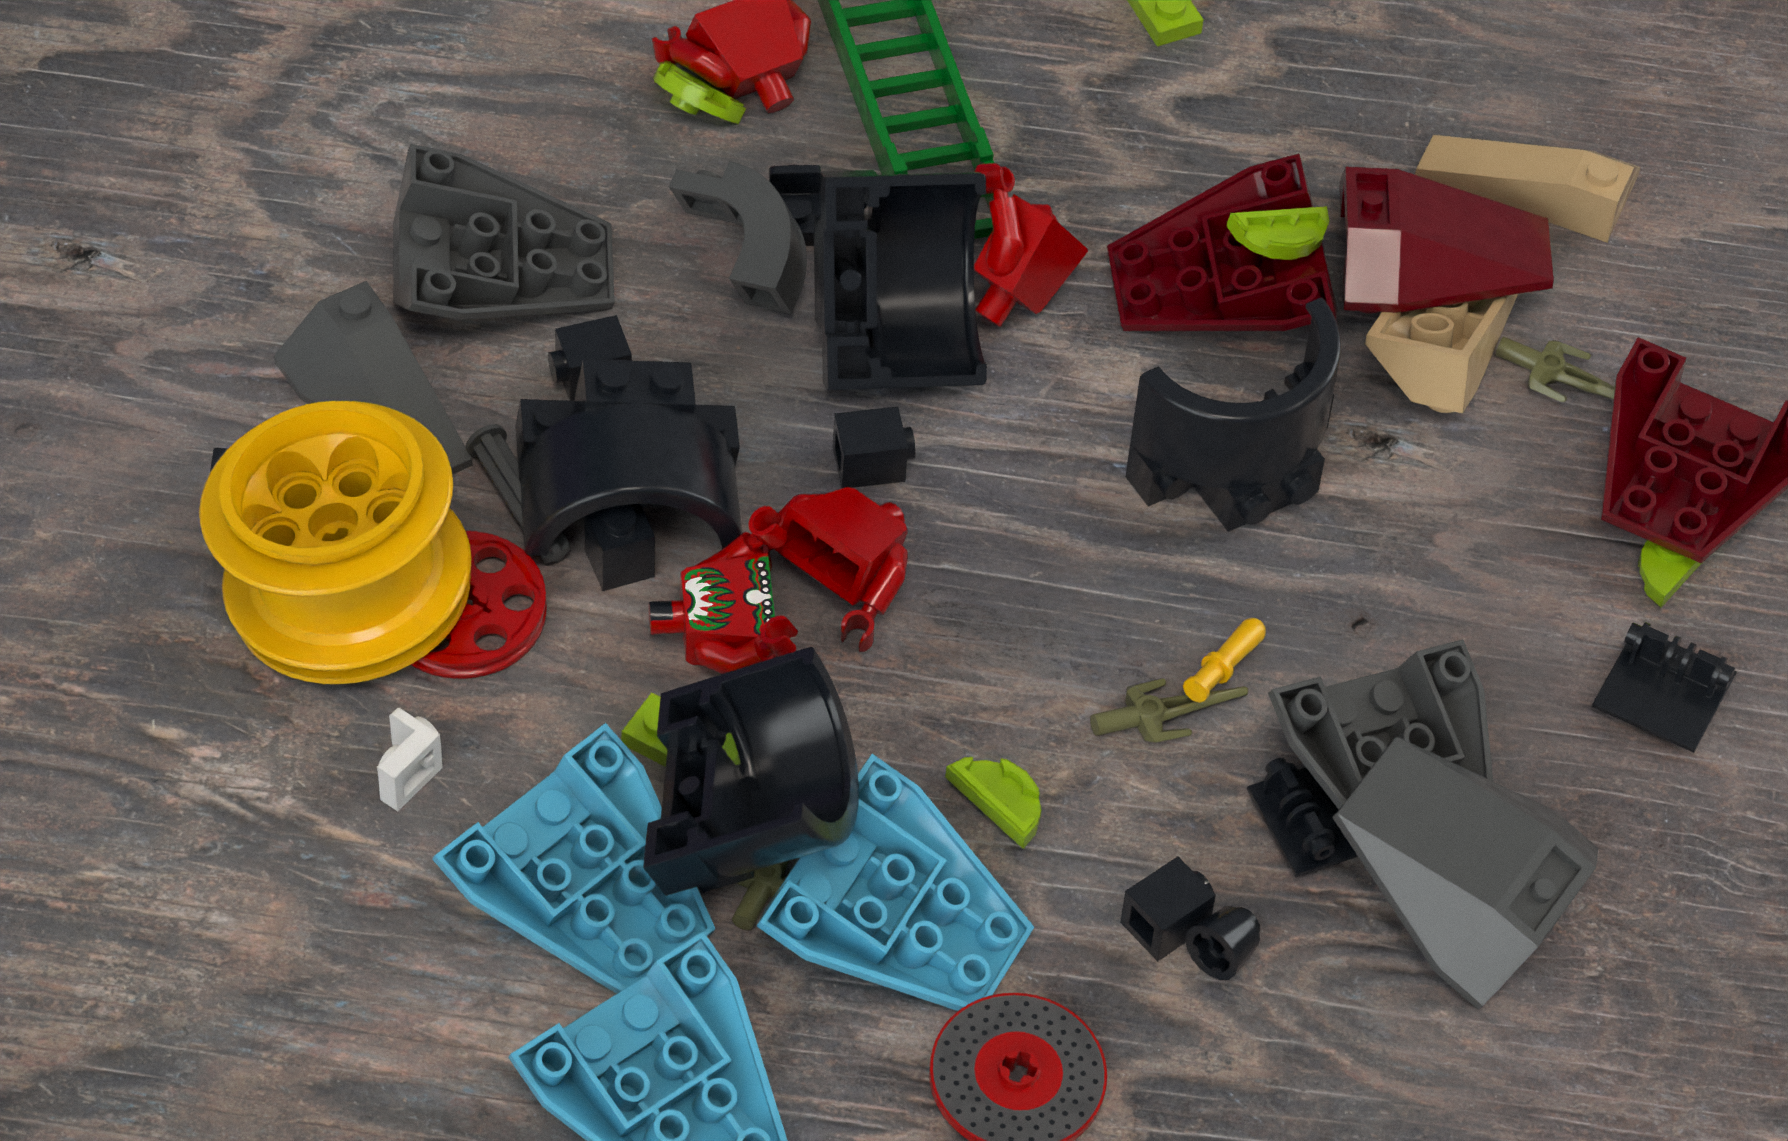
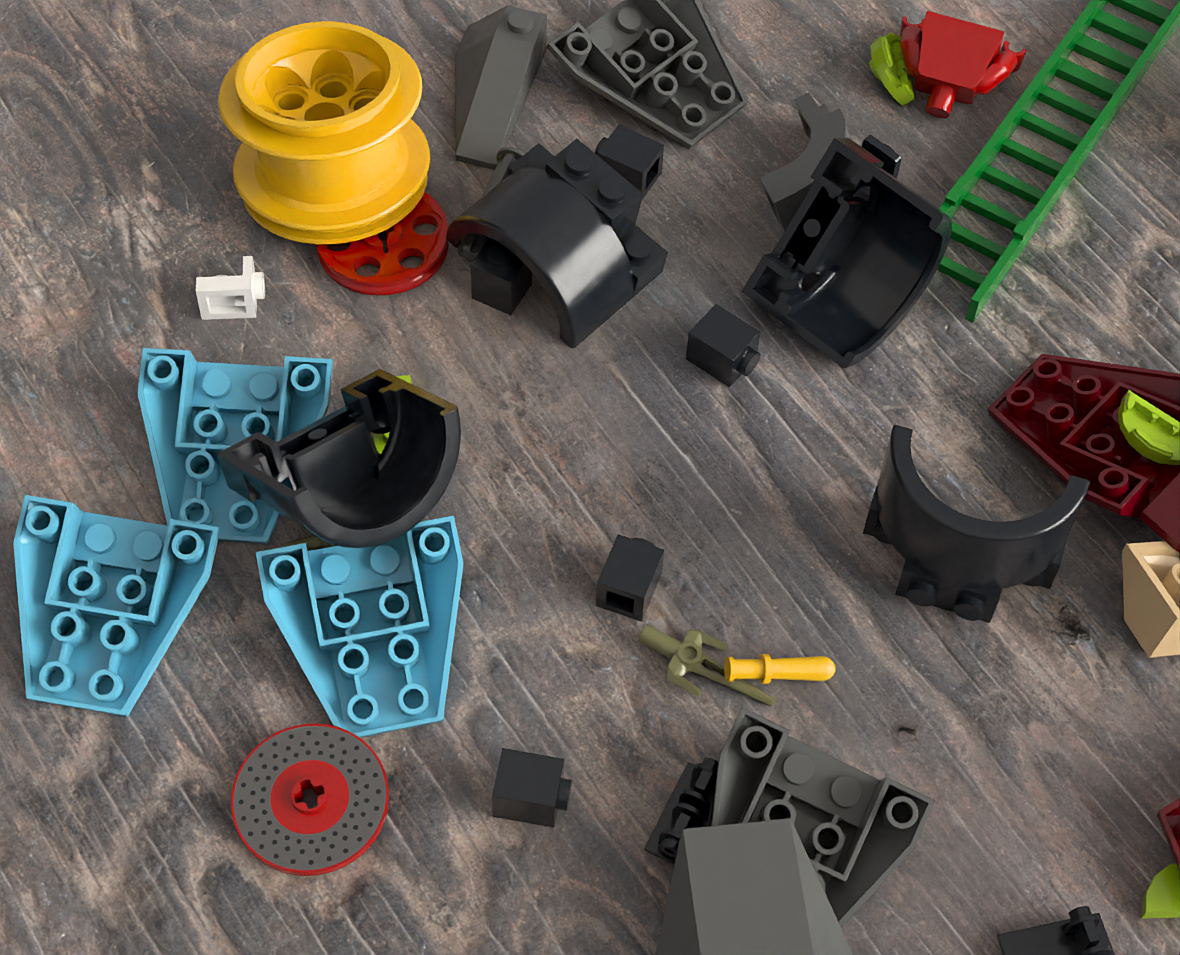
camera: 50 degrees right, 5 degrees up
(729, 603) = (514, 363): red torso -> none
(849, 549) = (624, 389): red torso -> none
(1001, 793) = (528, 621): lime plate -> none
(1025, 253) = (959, 303): red torso -> none
(1037, 690) = (629, 577): none -> black brick
(1223, 941) = (539, 844): black hat -> none

